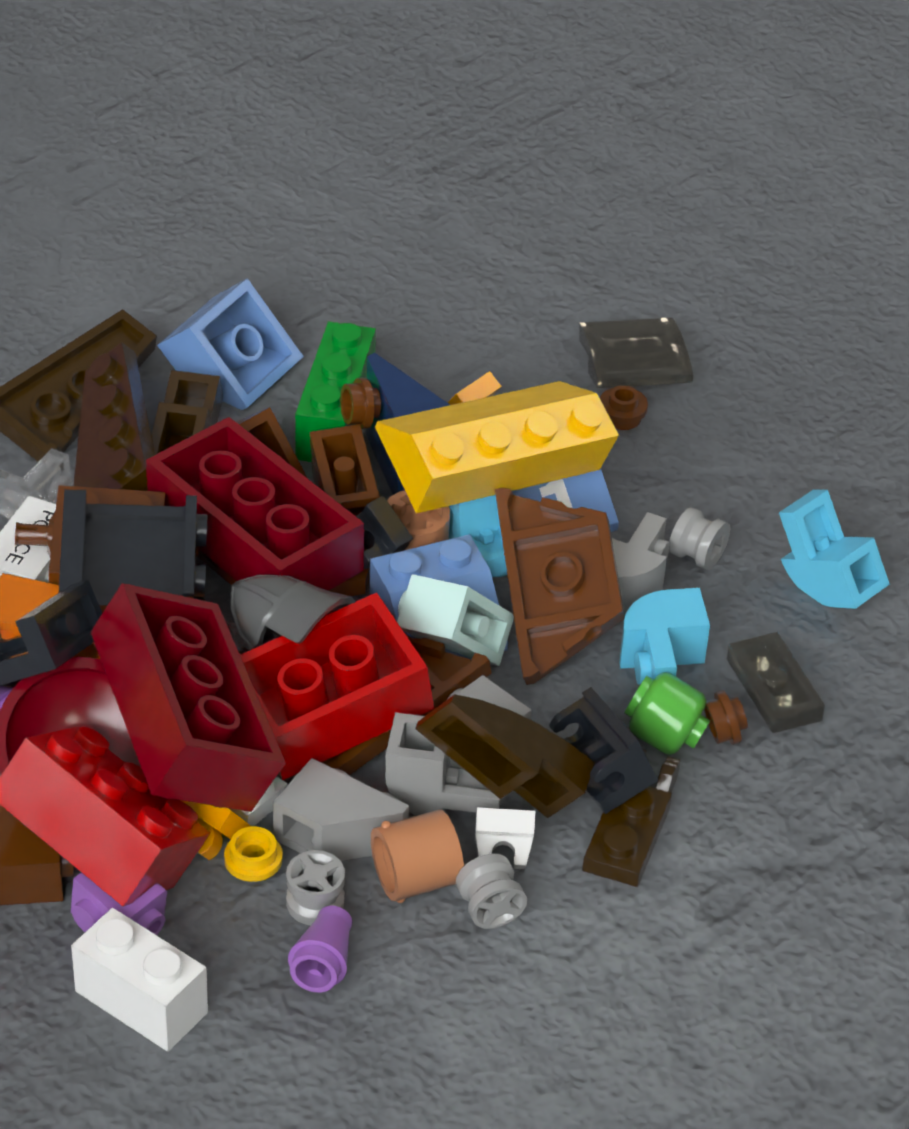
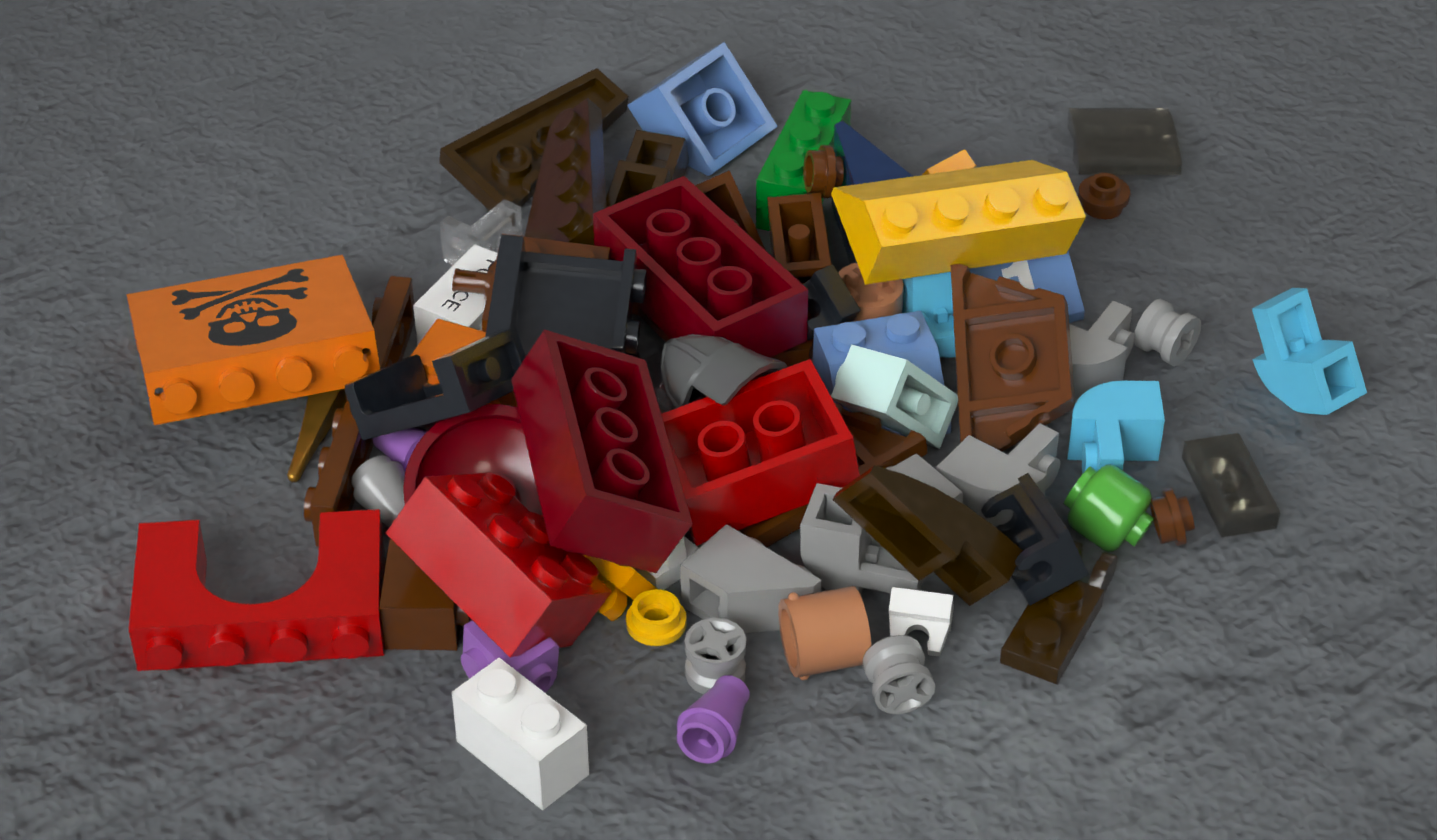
camera: 10 degrees right, 0 degrees up
(552, 688) = (986, 471): none -> light grey brick

